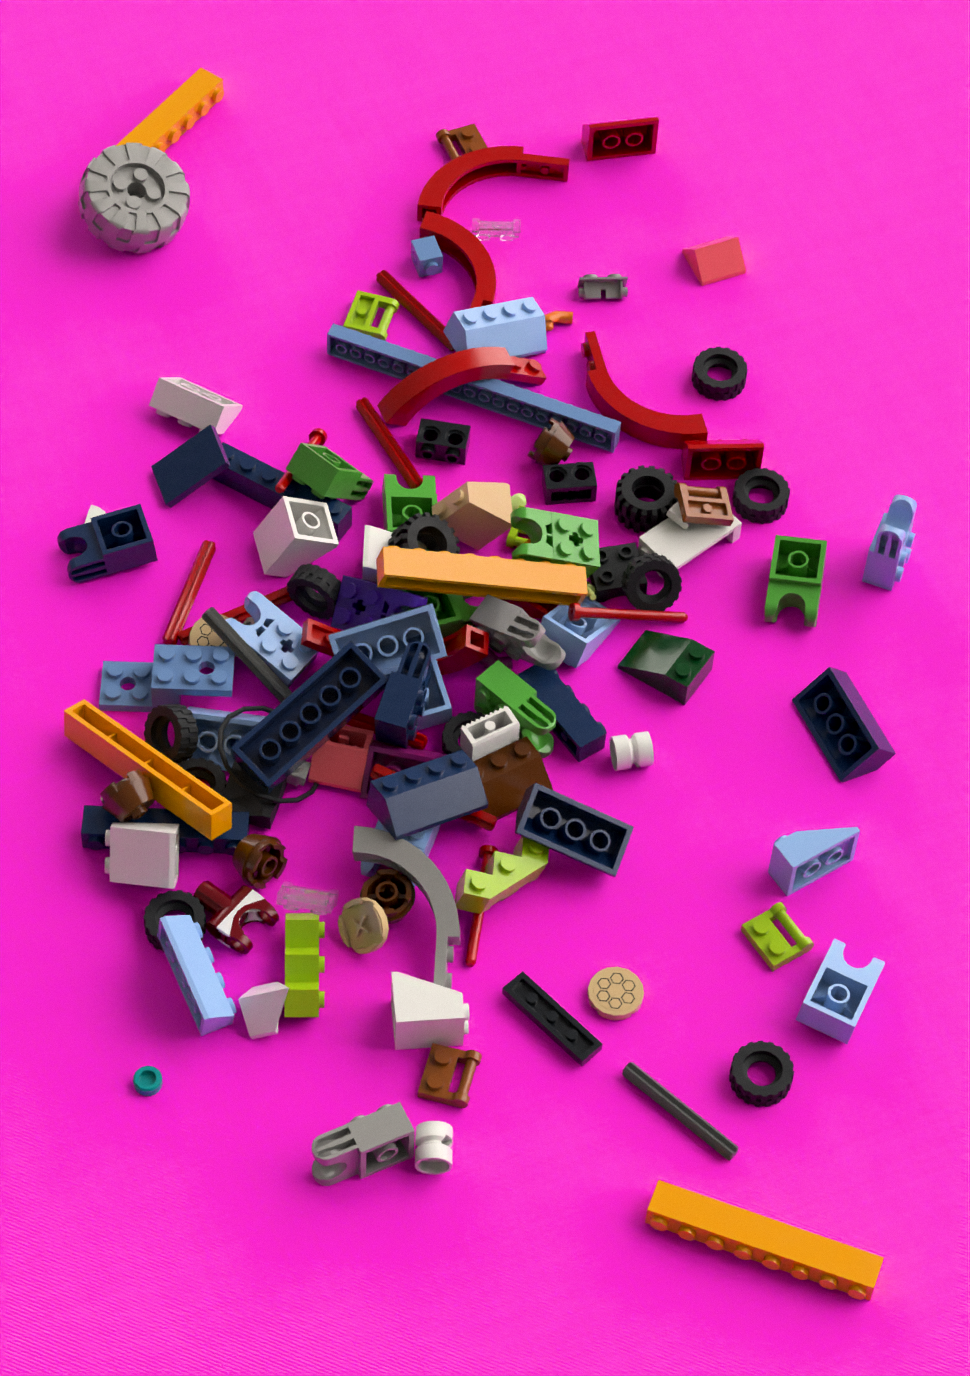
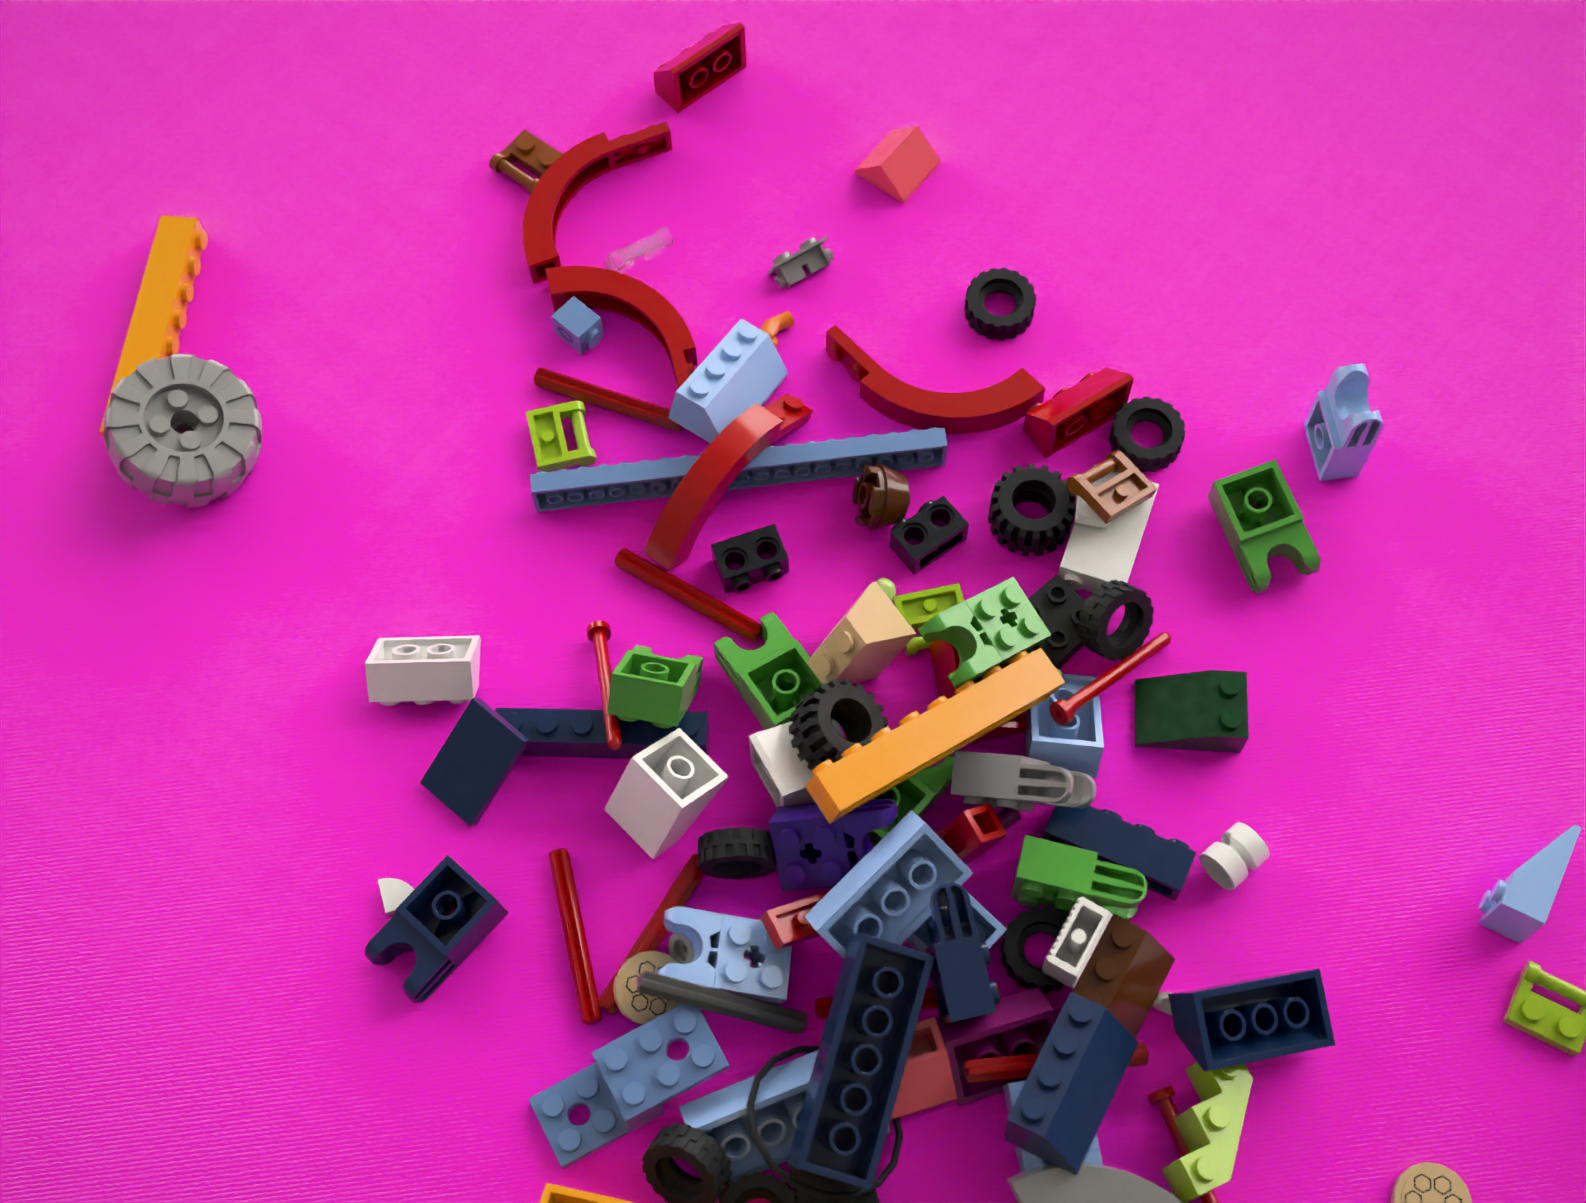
camera: 25 degrees left, 10 degrees up
(843, 725) = (1436, 684): dark blue slope -> none

